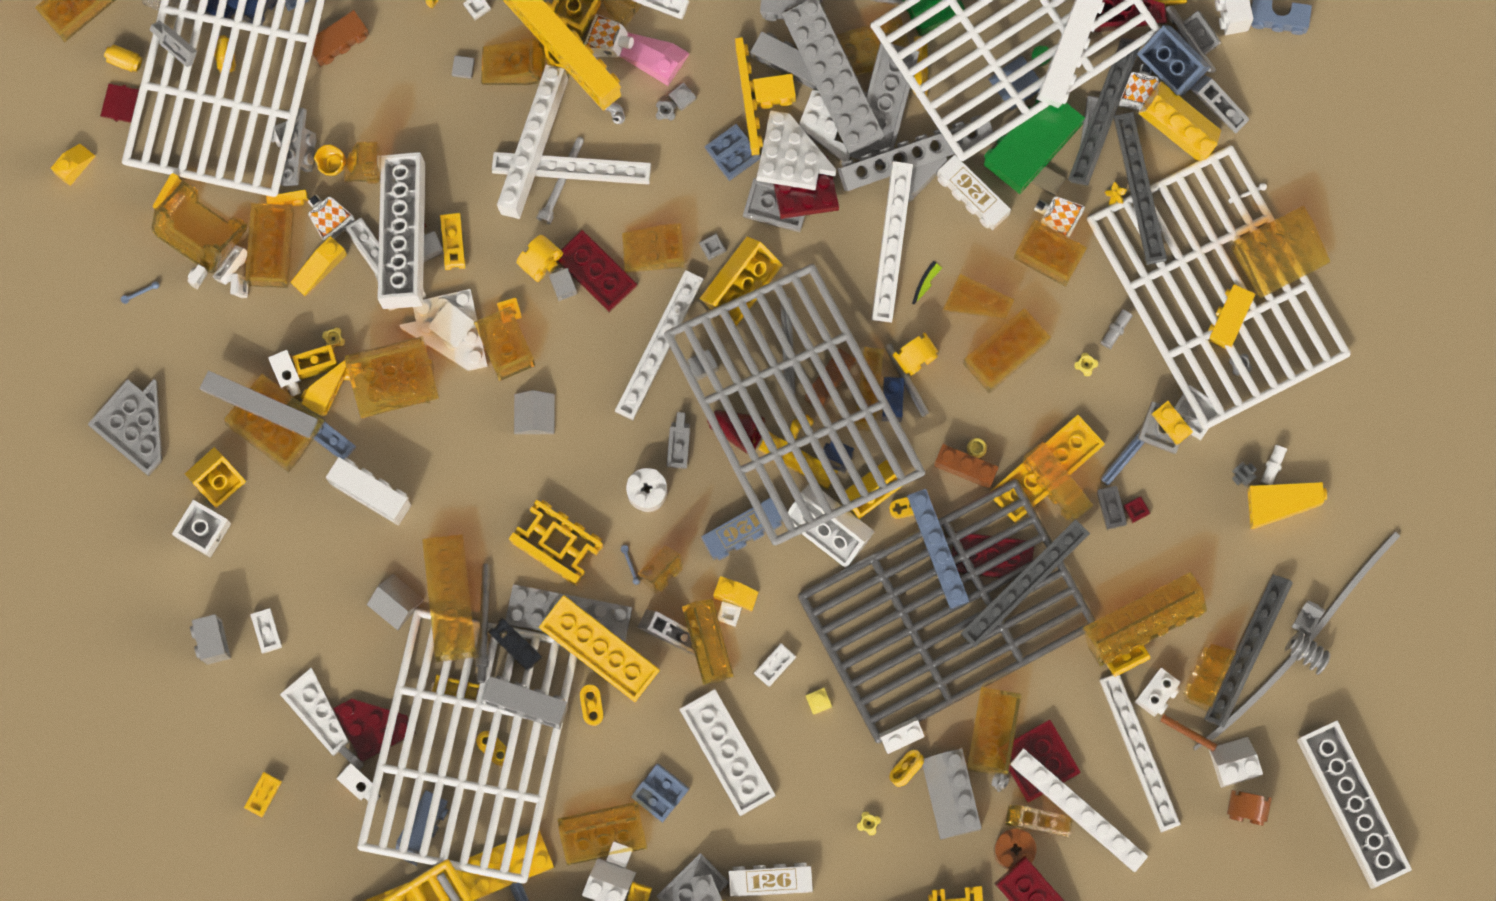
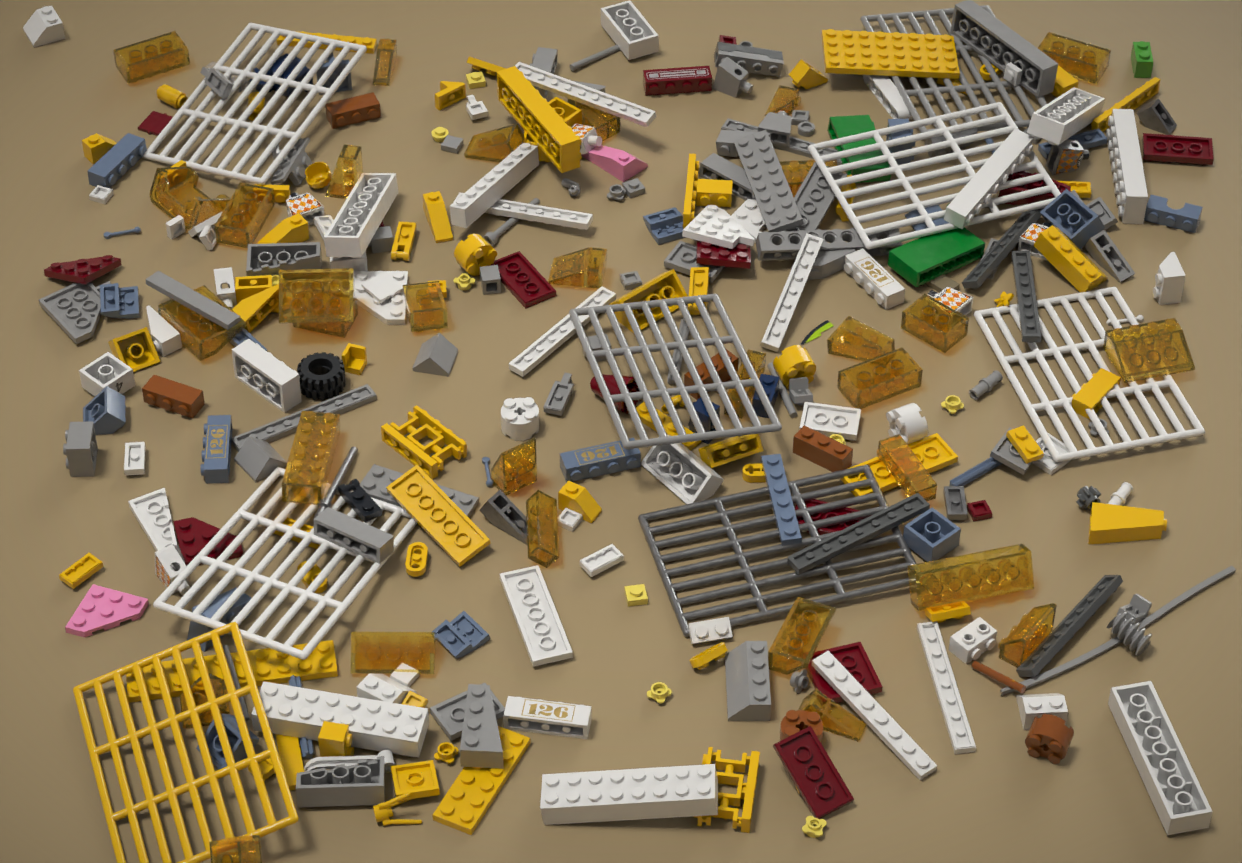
camera: 10 degrees right, 35 degrees down
(96, 236) = (101, 194): none -> white tile
(98, 183) = (117, 161): none -> sand blue brick
(119, 367) = (82, 270): none -> dark red plate
(175, 406) = (119, 302): none -> sand blue slope
(214, 576) = (106, 411): none -> sand blue slope
(236, 447) = (164, 336): none -> white slope
(277, 536) = (173, 396): none -> dark orange brick
(303, 838) = (104, 610): none -> bright pink plate
(326, 310) = (272, 257): none -> light grey wedge
(347, 599) = (217, 449): none -> sand blue brick
(420, 458) = (321, 376): none -> black tyre
(423, 529) = (289, 424): none -> light grey tile
(445, 54) = (439, 134): none -> light yellow plate
(451, 440) = (354, 359): none -> yellow panel
(480, 198) = (437, 216): none -> yellow slope
(536, 296) = (464, 282): none -> light yellow plate
(789, 250) = (698, 286): none -> yellow plate
(927, 384) = (799, 390): none -> light grey bracket
(965, 418) = (831, 419): none -> white plate
(1047, 416) = (907, 423): none -> white brick
(1096, 565) = (931, 535): none -> sand blue brick
(1290, 135) = (1169, 281): none -> white slope

